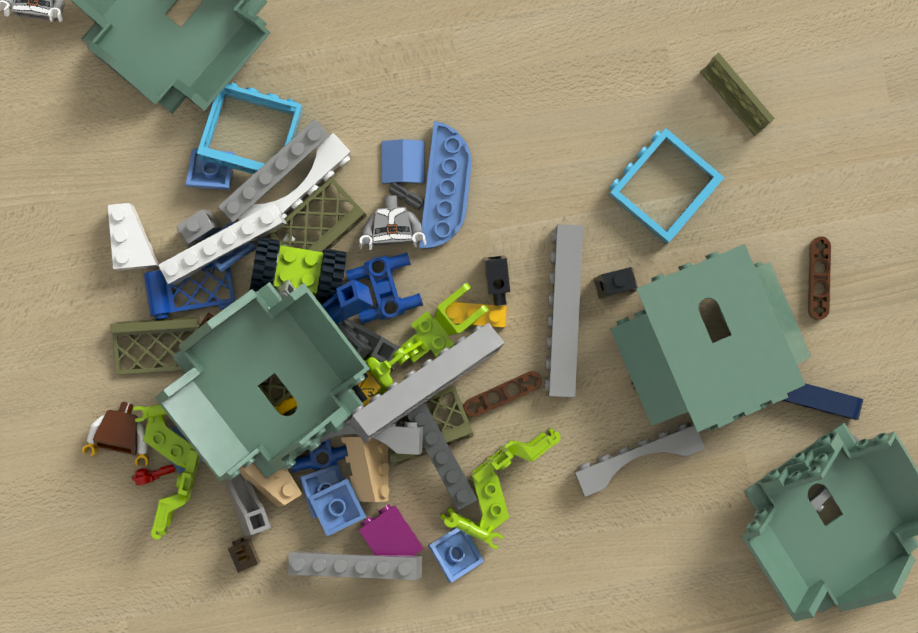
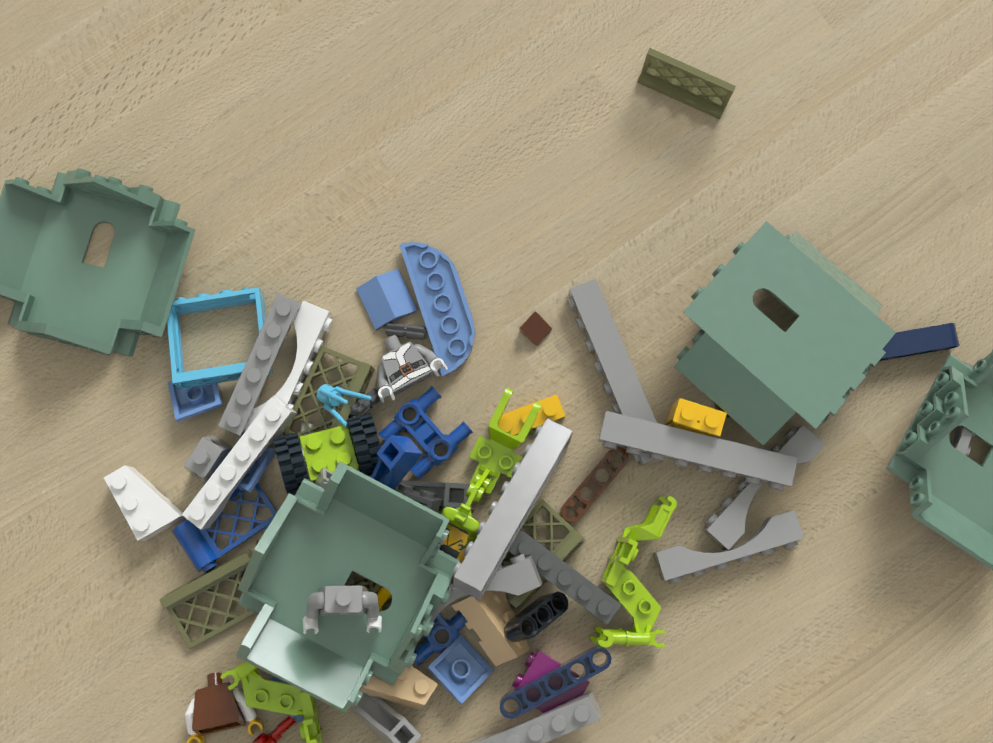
camera: 20 degrees left, 5 degrees down
(257, 394) = (342, 601): none -> light grey torso
(321, 224) = (333, 396): none -> medium azure plant
(337, 506) = (480, 680): medium blue slope -> none
(346, 241) = (362, 406): none -> dark grey piece
(385, 540) = (546, 691): none -> dark blue beam
(405, 477) = (536, 617): none -> black beam
(455, 554) = (626, 673): medium blue slope -> none
(497, 268) = (530, 360): black torso -> none
(514, 243) = (535, 328): none -> reddish brown slope
(599, 405) = (697, 449): none -> light grey brick
(607, 380) = (696, 418): none -> yellow window
(615, 282) = (654, 320): black torso -> none
(631, 500) = (774, 532): none -> light grey arch
(632, 168) = (679, 253): medium azure window -> none
(823, 278) = (846, 227): reddish brown beam -> none

